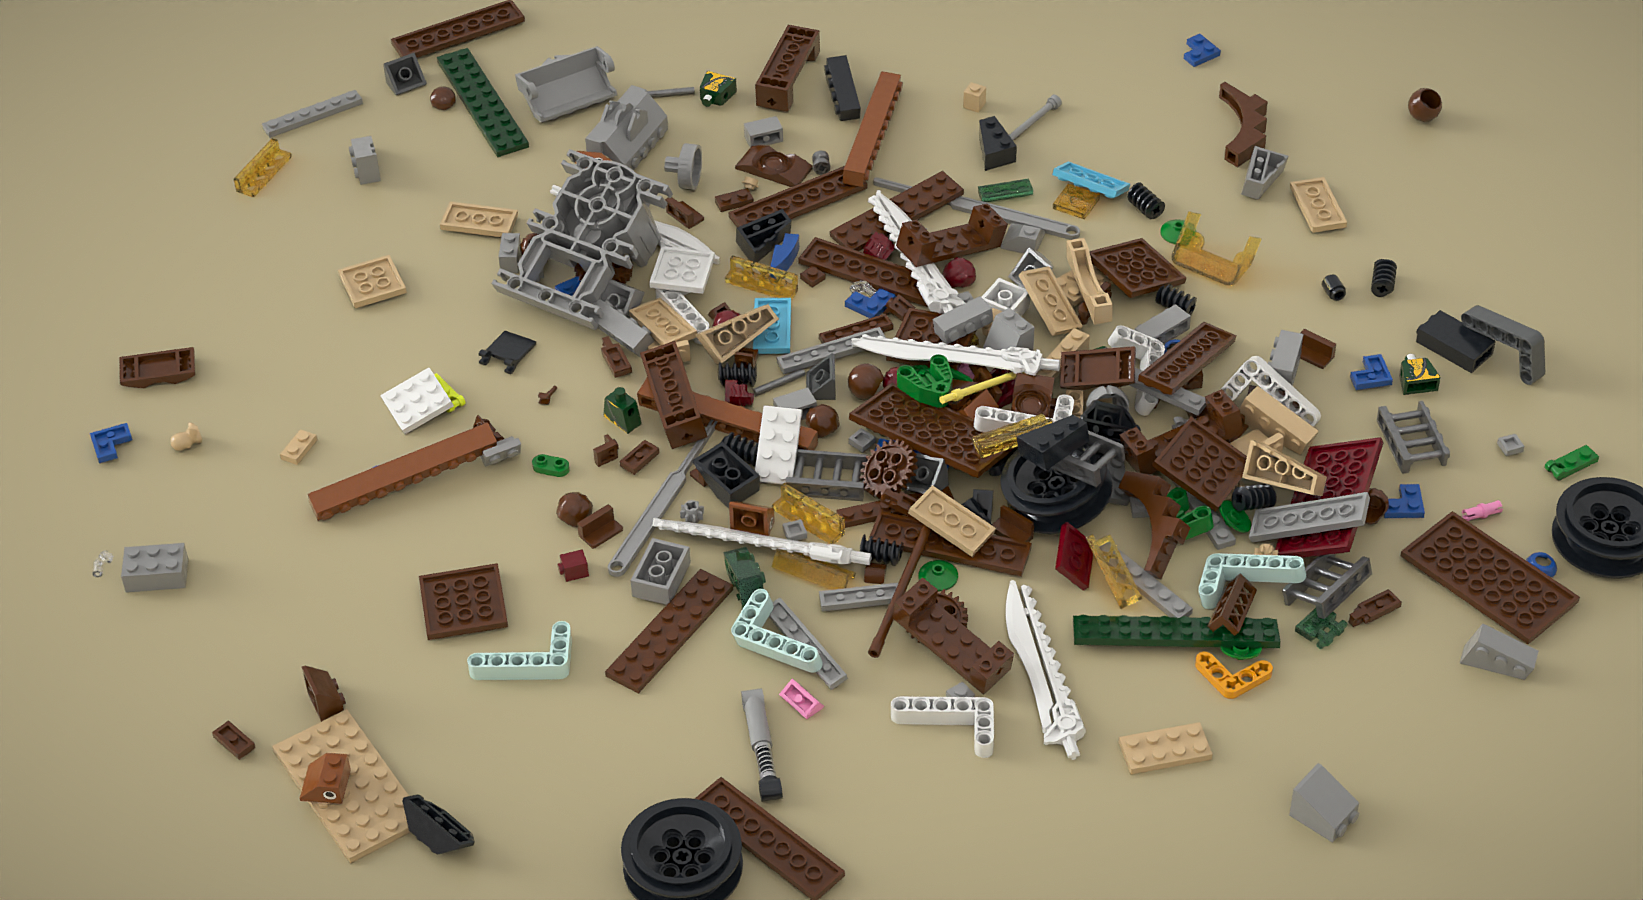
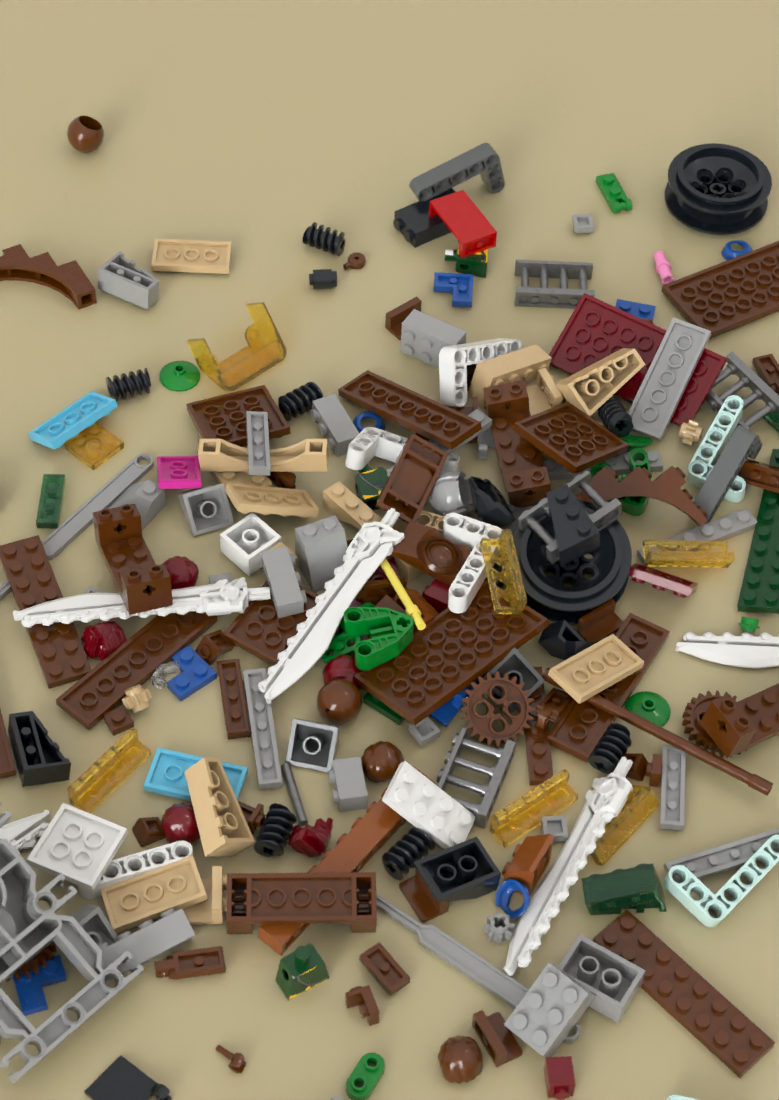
camera: 80 degrees left, 5 degrees up
(619, 541) = (549, 1010): none -> light grey brick
(721, 515) = (504, 893): none -> blue piece
(786, 253) = (74, 738): blue slope -> none
(831, 277) = (137, 698): none -> tan gear
(871, 579) = (654, 770): none -> reddish brown plate
(1052, 244) = (178, 472): none -> dark pink tile
(1054, 625) = (749, 624): none -> green plate
(1097, 272) = (258, 443): none -> light grey plate
(1219, 568) = (739, 447): none -> dark grey beam
(1372, 305) = (355, 261): none -> reddish brown piece
(1439, 349) = (465, 222): none -> red panel

